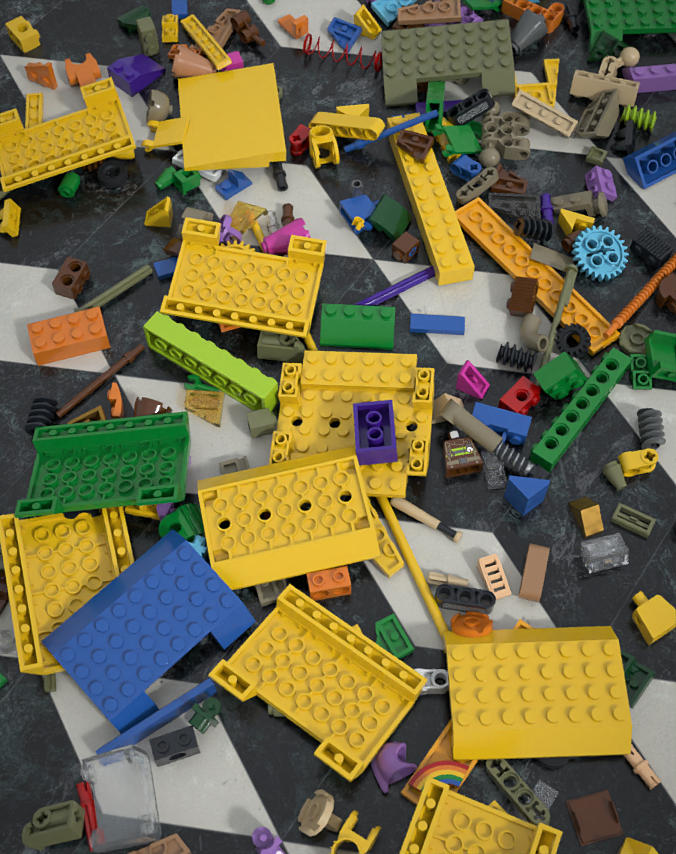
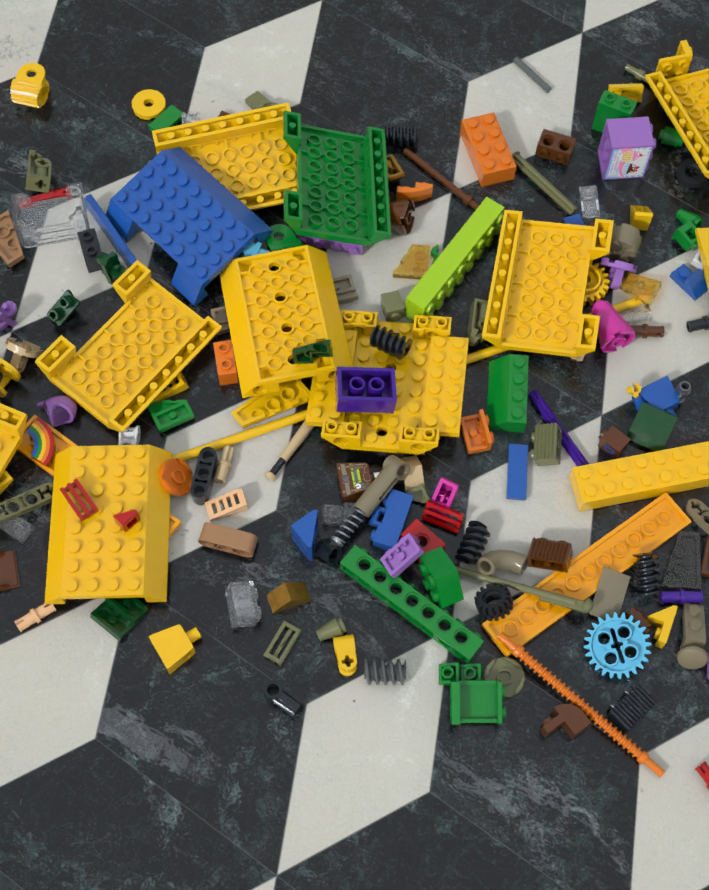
camera: 90 degrees right, 5 degrees up
(46, 221) = (612, 107): none -> green panel
(88, 213) = (626, 148): none -> medium lavender container
(142, 253) = (589, 201): none -> clear slope
(258, 770) = (63, 308): none -> dark green hips
(312, 414) = (390, 344): none -> black piece
(343, 475) = (306, 353): none -> dark green slope
(403, 345) = (477, 433): none -> orange bracket
(412, 296) = (546, 444): none -> olive brick
(467, 402) = (419, 493): none -> olive tile
(492, 384) = (441, 523): none -> red tile
(537, 700) = (70, 487): none -> red tile
(542, 655) = (126, 519): none -> red slope
(543, 406) = (402, 555): none -> medium lavender bracket

